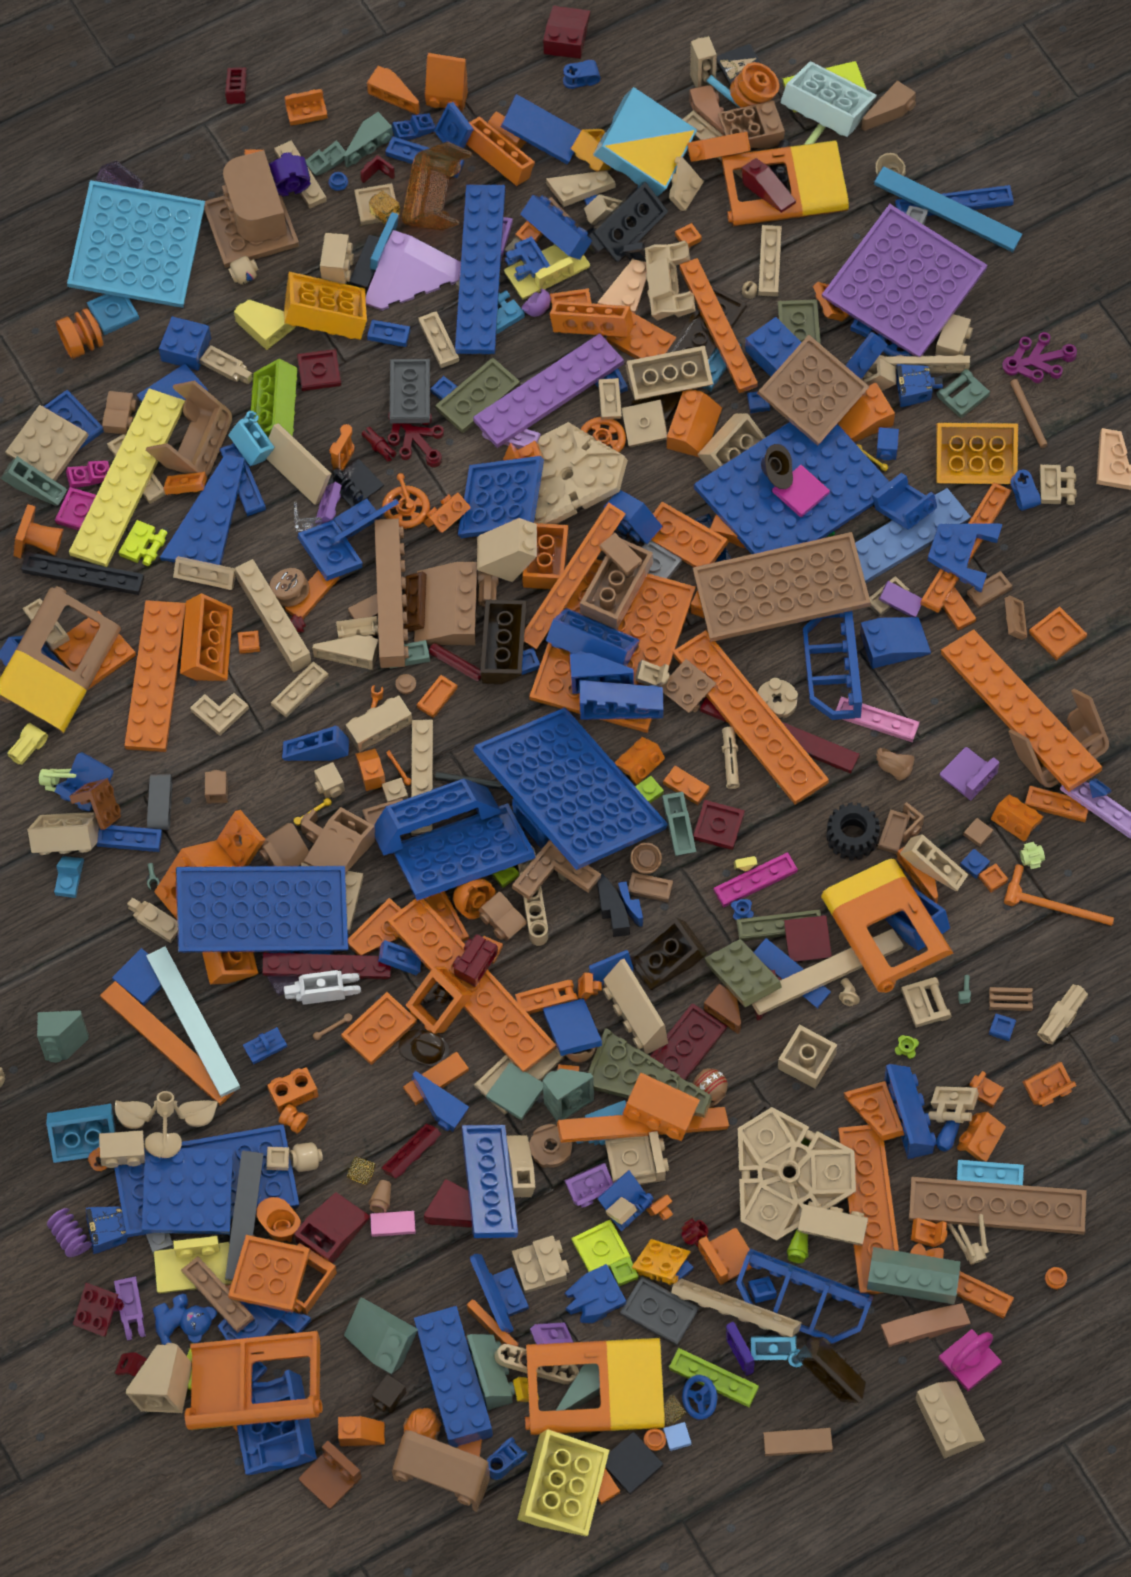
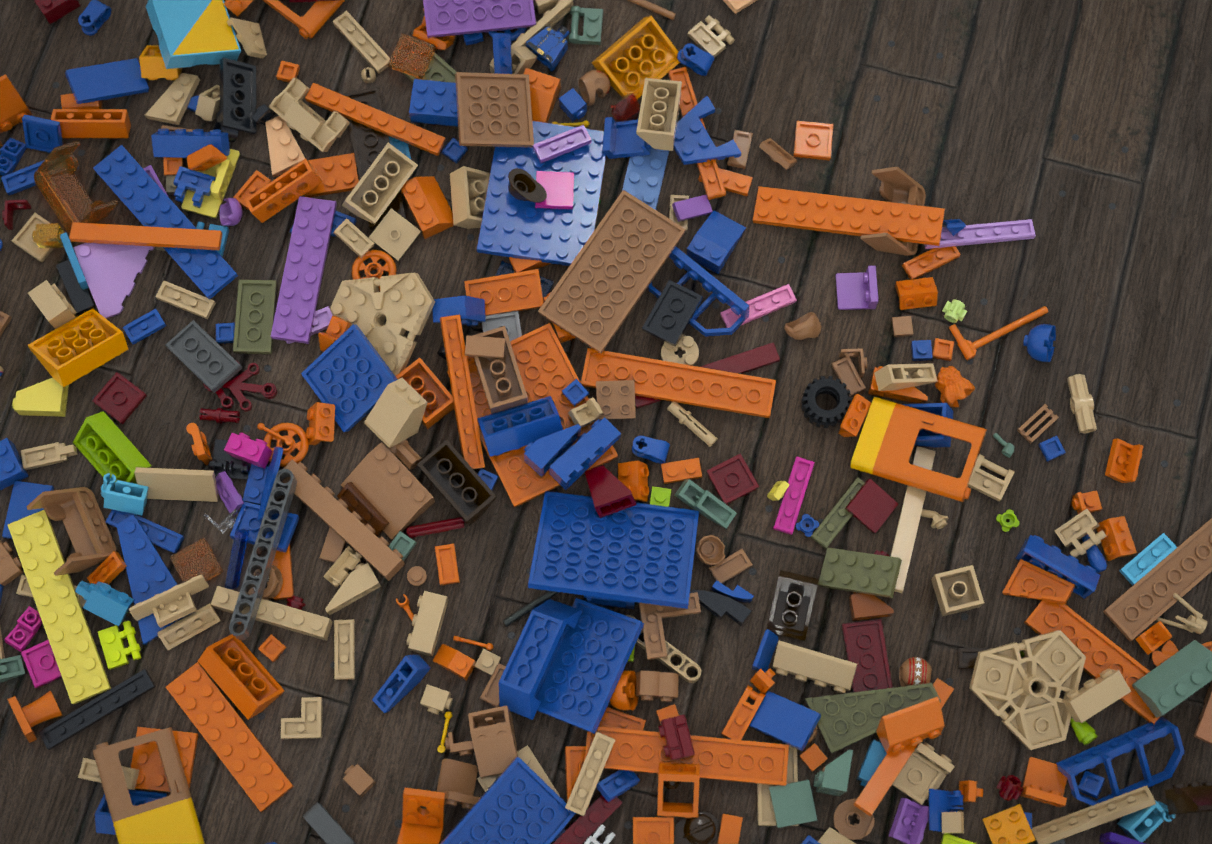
camera: 45 degrees left, 10 degrees up
(163, 501) = (105, 601): none -> dark azure hinge
(208, 542) = (171, 603): none -> tan bracket
(254, 535) = (196, 561): none -> clear orange plate
(286, 553) = (236, 559): none -> clear blue tile
(301, 570) = (264, 563): none -> dark grey beam
(372, 484) = (248, 450): none -> dark pink brick
(385, 927) = (590, 773): none -> tan plate
(422, 762) = (484, 621): tan plate -> none
(454, 265) = (145, 236): none -> orange tile
(555, 245) = (205, 158): none -> orange slope
(608, 745) = (608, 492): none -> dark red slope
(660, 652) = (575, 392): none -> blue plate
(679, 749) = (652, 449): none -> blue piece
(785, 967) = (878, 540): blue tile -> none
(796, 301) = (411, 56): none -> clear orange plate
(799, 660) = (672, 313): none -> black plate
(843, 461) = (562, 143): none -> medium lavender plate
(862, 858) = (854, 416): none -> orange bracket
(922, 439) = (594, 83): none -> medium nougat helmet
(926, 479) = (625, 107): none -> clear red brick
(944, 501) = (659, 113): none -> tan slope
(968, 908) = (953, 386): none -> orange hair
(1078, 939) = (1040, 342): none -> blue cylinder

